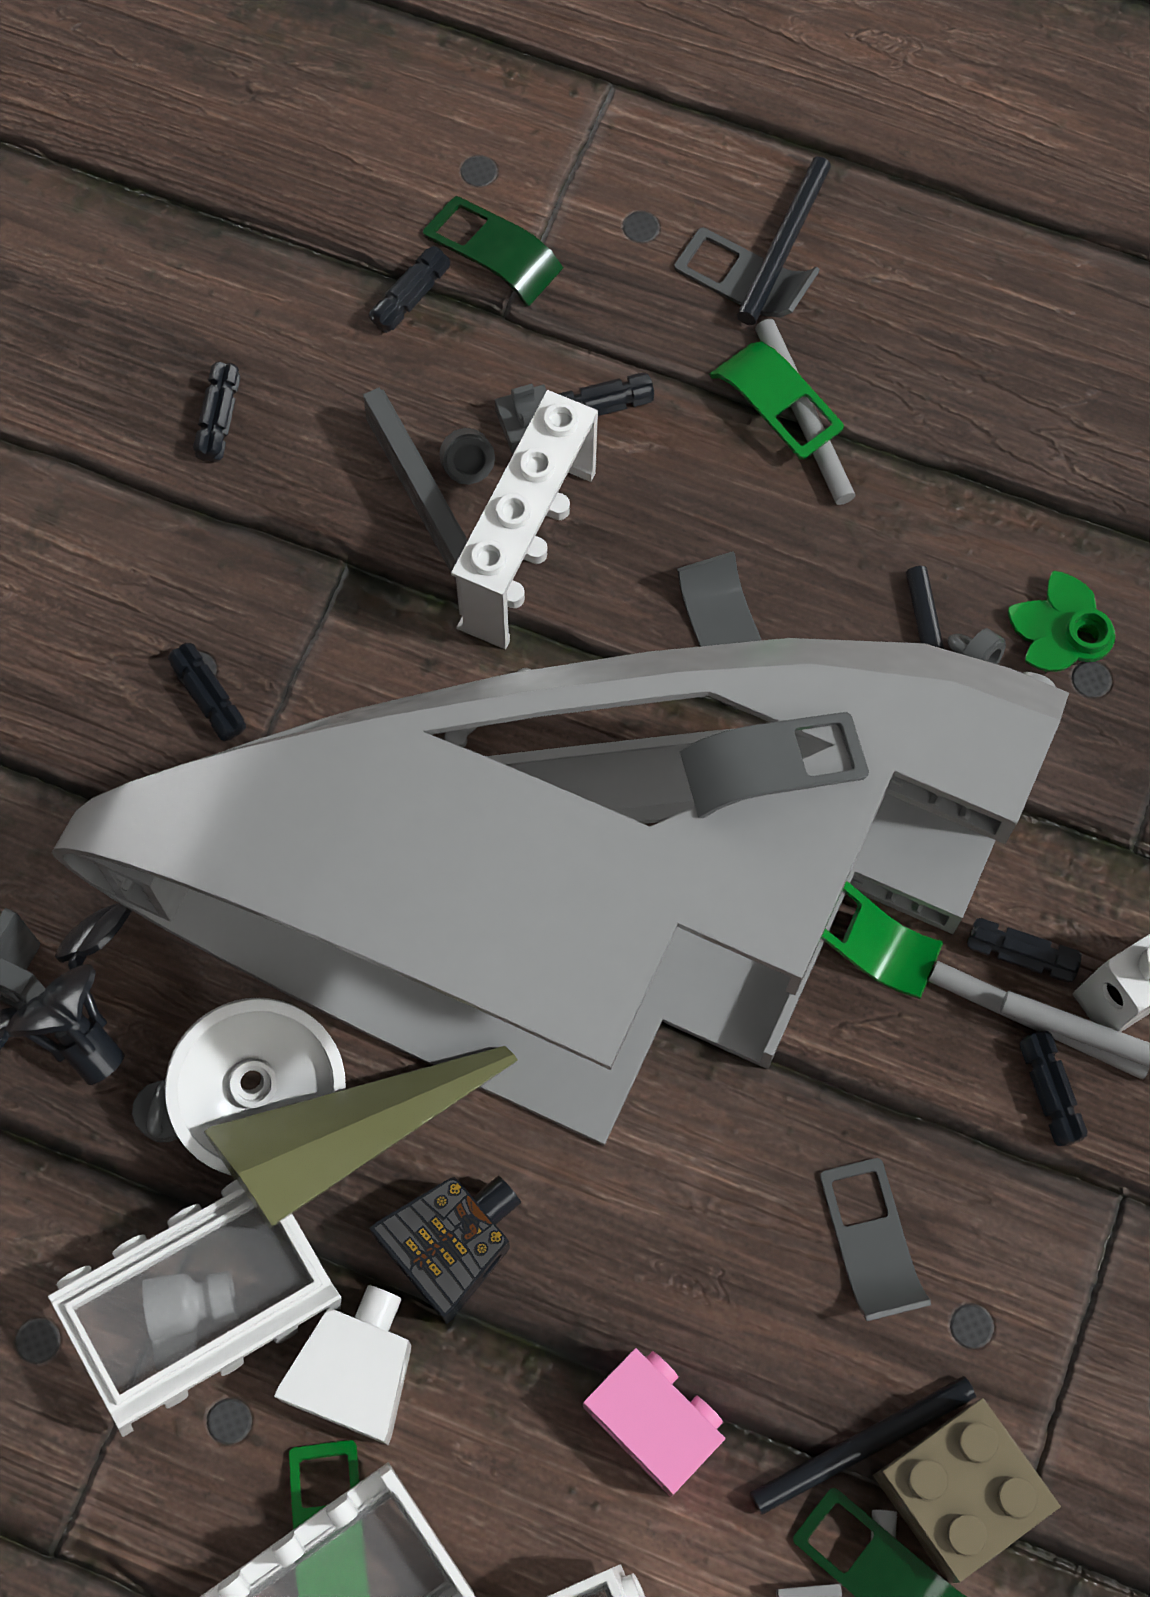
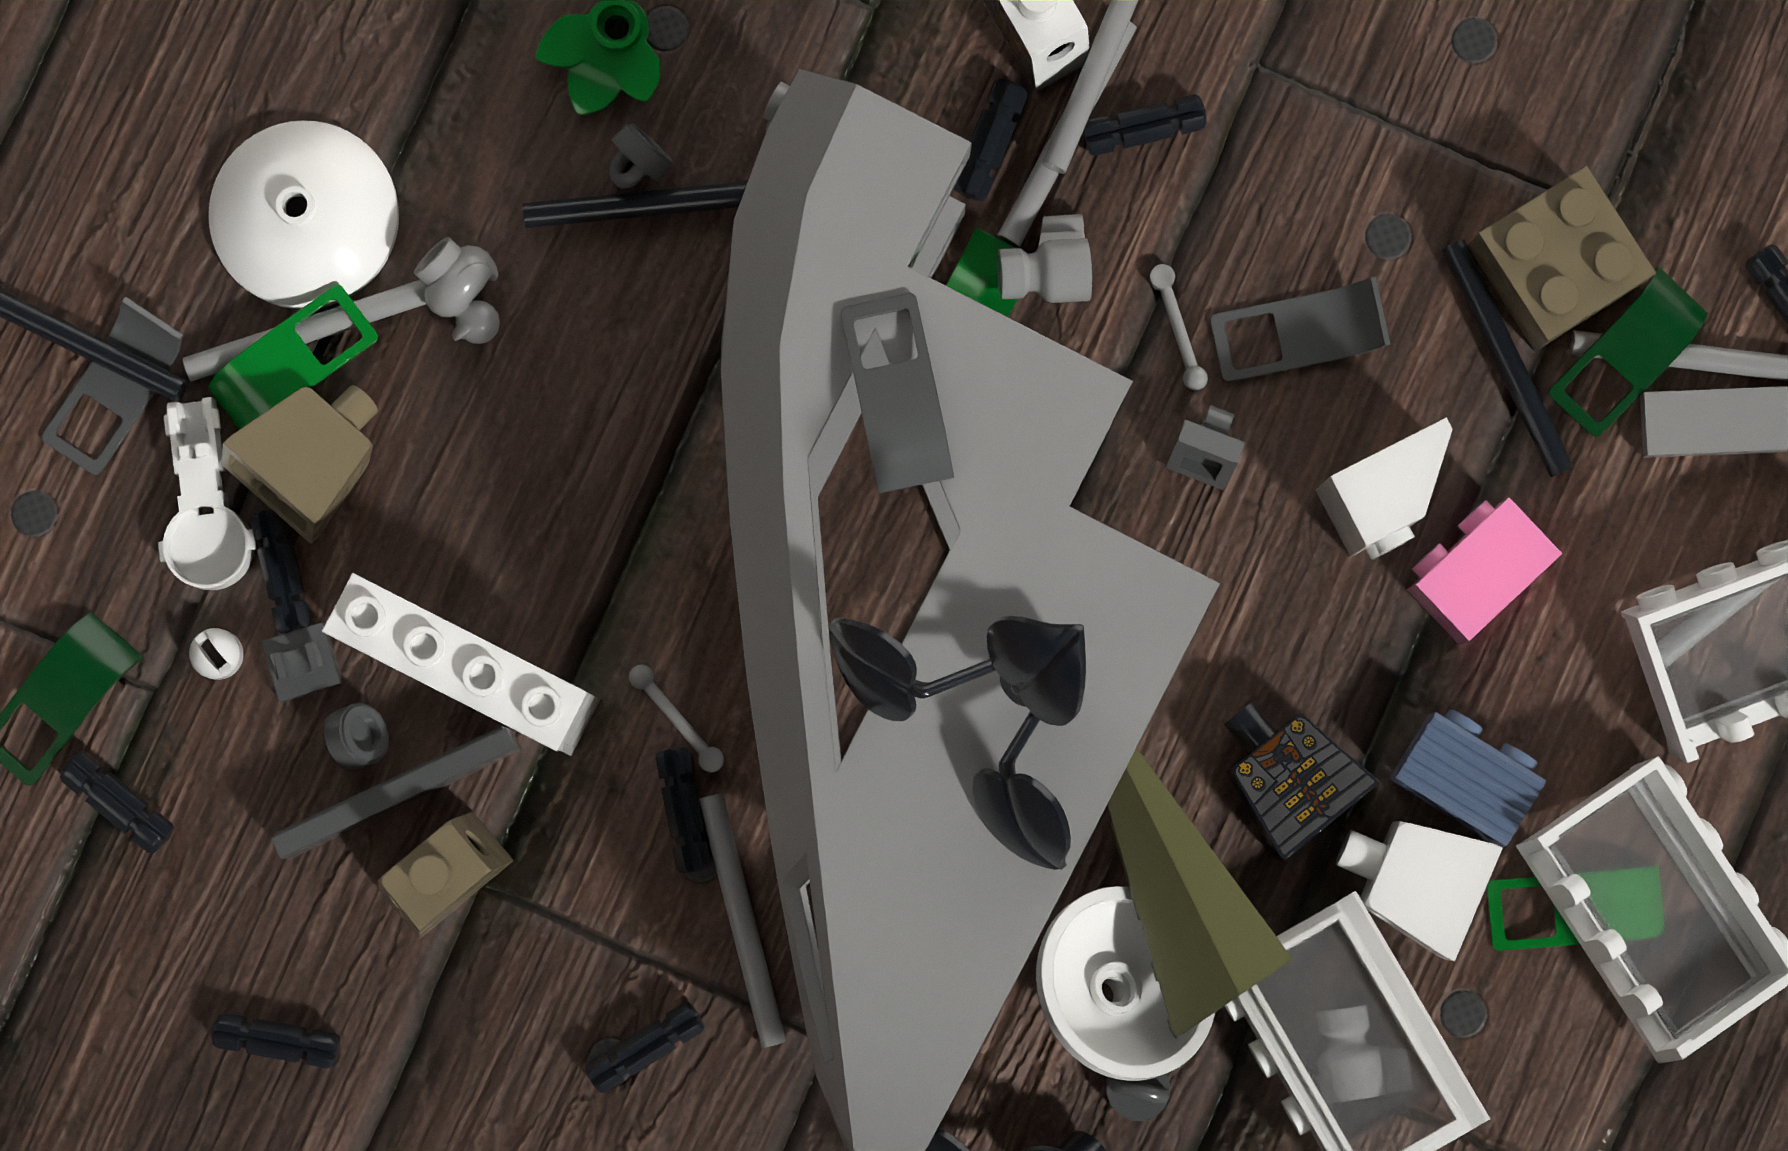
camera: 85 degrees left, 15 degrees up
(348, 511) = (443, 872): none -> dark tan torso
(453, 1411) = (1469, 778): none -> sand blue brick
(504, 861) = (1038, 669): none -> black plant
(539, 359) = (226, 644): none -> white hinge
(620, 338) = (206, 548): none -> white piece
(699, 405) = (304, 455): none -> dark tan torso
(717, 602) = (580, 443): dark grey piece -> none
(725, 1316) = (1386, 492): none -> white slope
(753, 1151) = (1206, 450): none -> dark grey tile
(853, 509) = (452, 282): none -> light grey animal
(898, 429) = (334, 242): none -> white dish
(909, 1009) = (1057, 269): none -> light grey piece
(910, 1112) = (1162, 279): none -> light grey hinge

